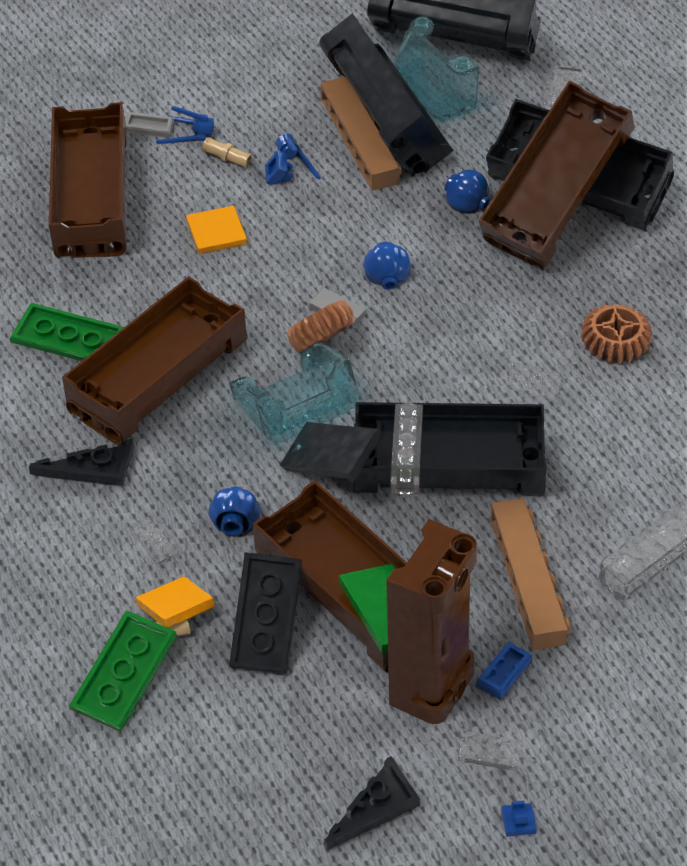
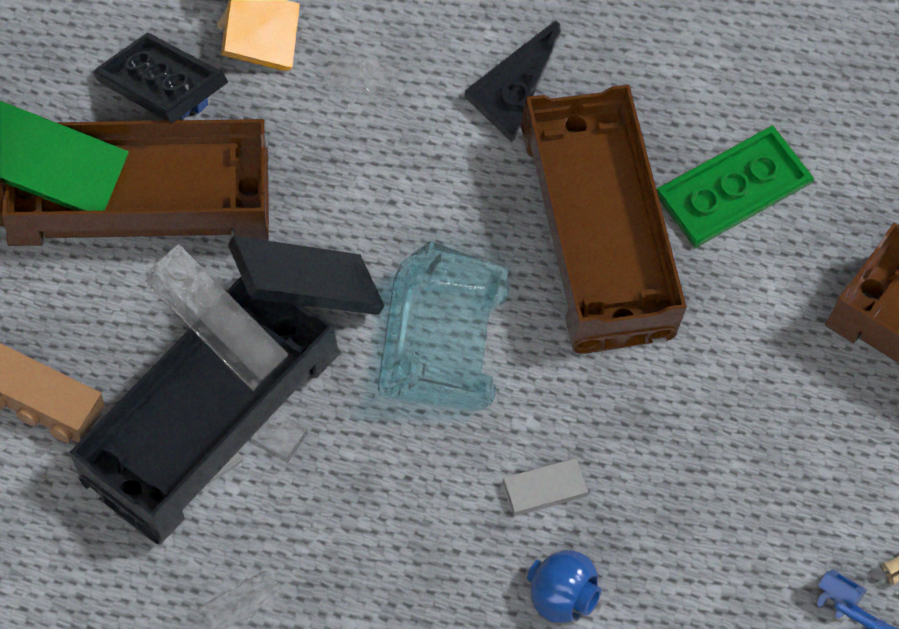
camera: 125 degrees right, 15 degrees up
(216, 229) = (789, 451): light orange tile -> none
(235, 505) = (331, 163): blue plant -> none
(321, 325) = (508, 415): nougat gear -> none

